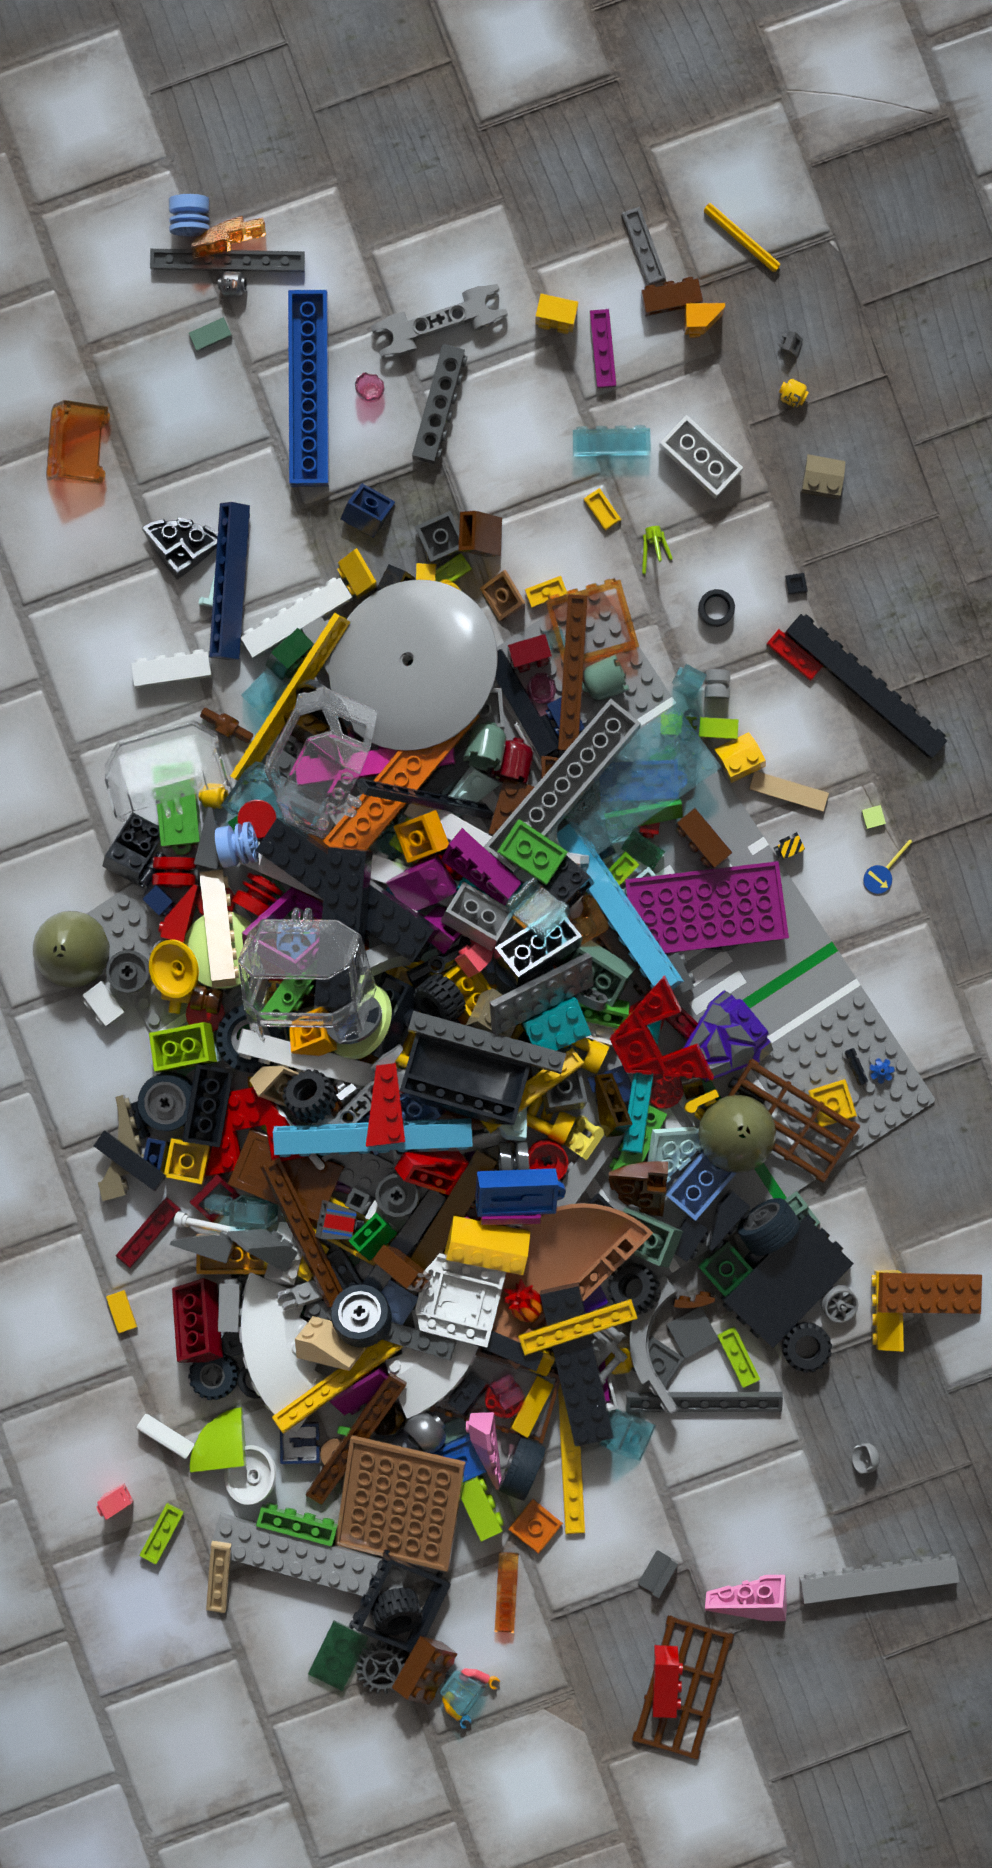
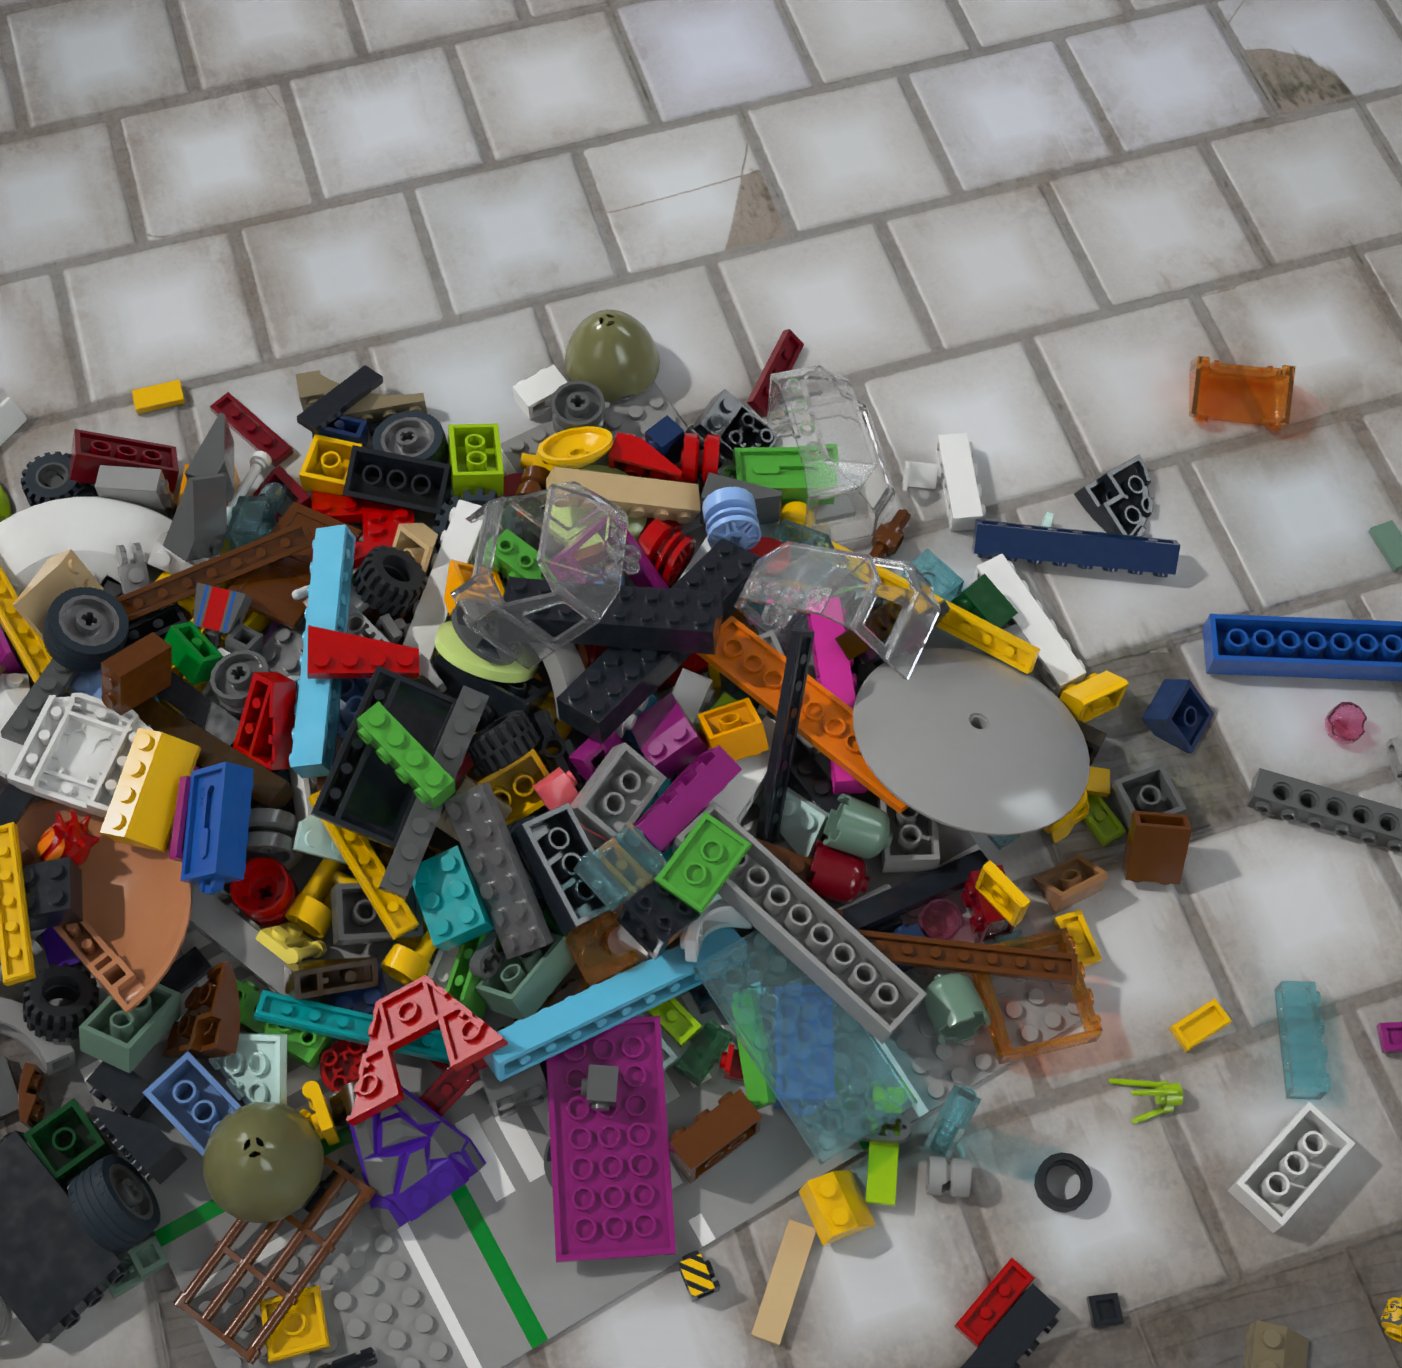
camera: 90 degrees right, 25 degrees down
(75, 816) = (780, 360): none -> dark red plate
(166, 701) = (919, 475): none -> white bracket
(468, 1065) = (406, 756): none -> bright green brick
(537, 646) = (1002, 893): none -> yellow tile
(679, 915) = (600, 1087): none -> dark grey brick

